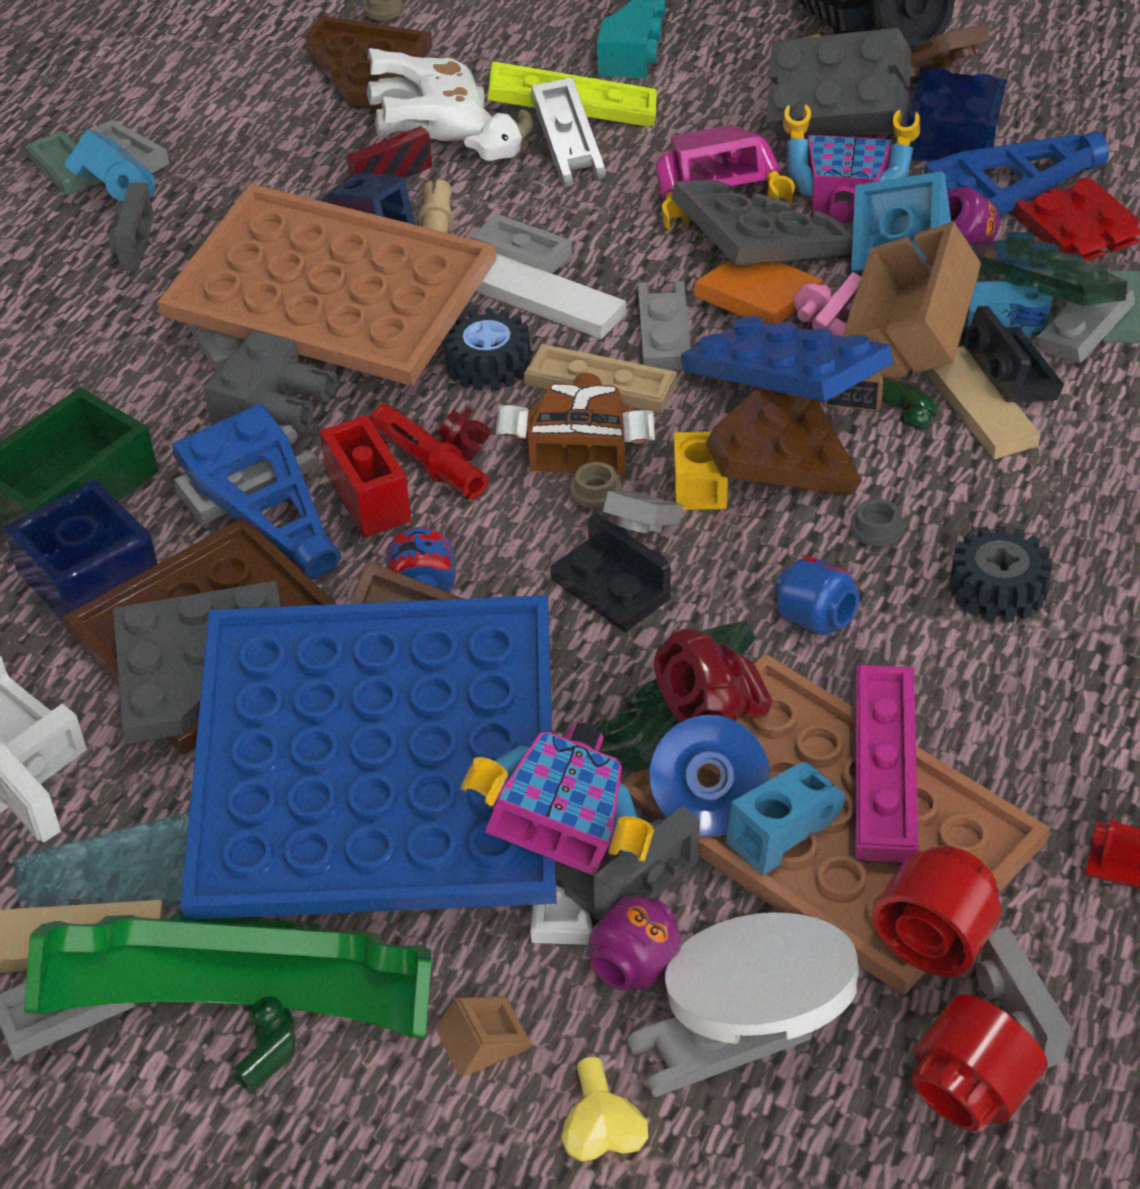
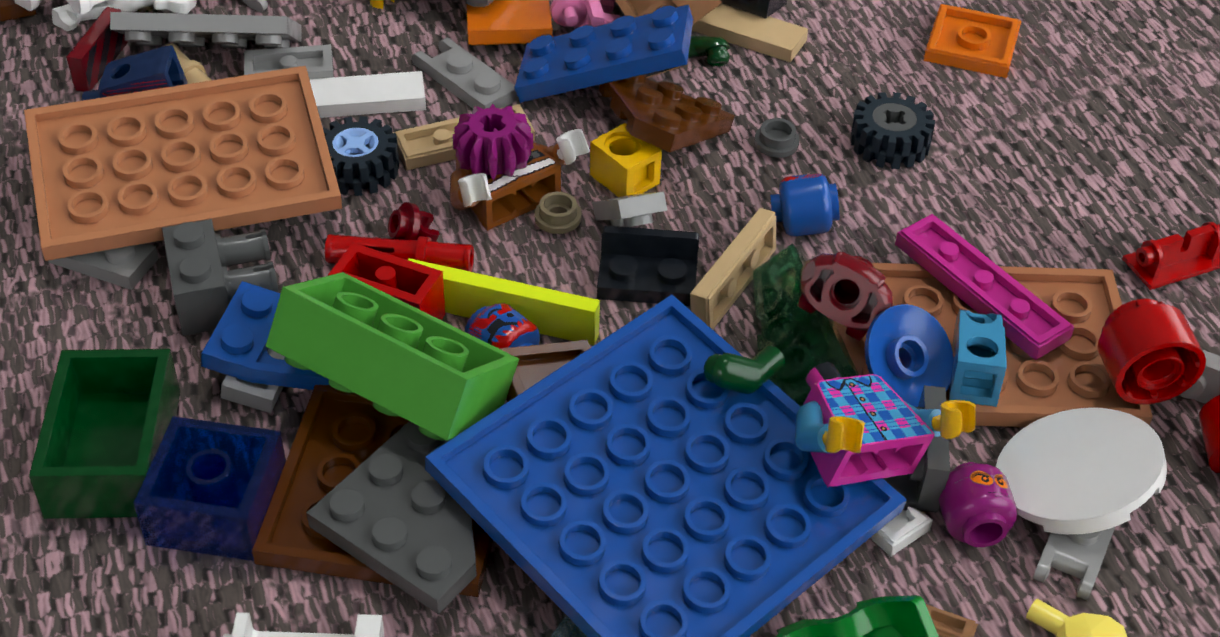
camera: 45 degrees left, 0 degrees up
(274, 515) = (390, 354): none -> bright green brick
(472, 550) = (552, 311): none -> neon yellow tile
(482, 182) = (194, 29): none -> light grey plate
(523, 697) = (742, 373): none -> dark green arm
(571, 386) = (493, 141): none -> magenta gear
(649, 622) = (734, 268): none -> tan tile

